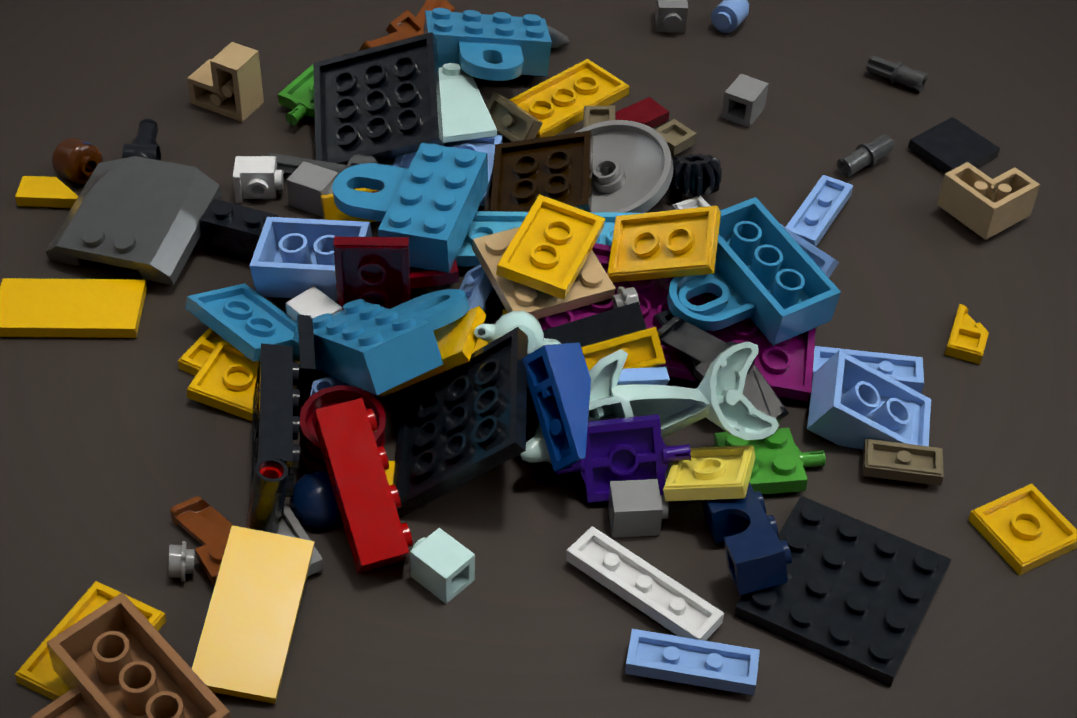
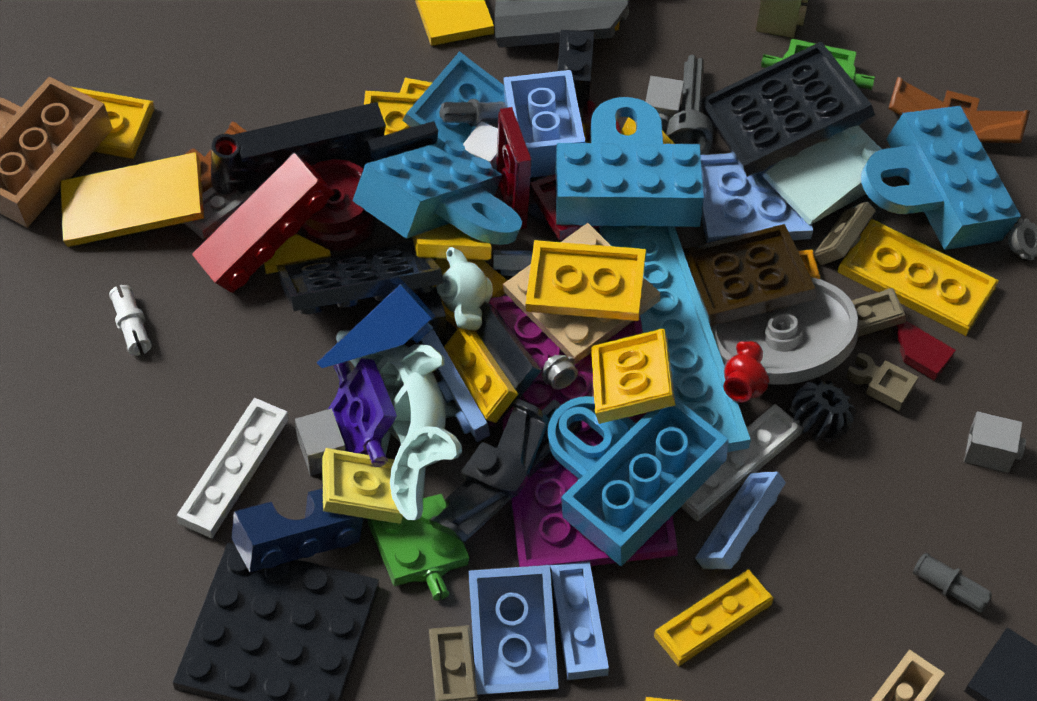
camera: 75 degrees right, 10 degrees up
(180, 561) = (182, 141): light grey plate -> none
(256, 178) = (658, 55): white brick -> none
(274, 302) = (471, 112): none -> dark grey axle
(416, 650) = (130, 320): none -> white pin
(442, 565) = (217, 313): light aqua brick -> none
(663, 193) = (745, 374): none -> red animal
(692, 661) = (157, 518): light blue plate -> none
(820, 209) = (823, 544): light blue plate -> none
(873, 294) = (713, 617): none -> yellow tile

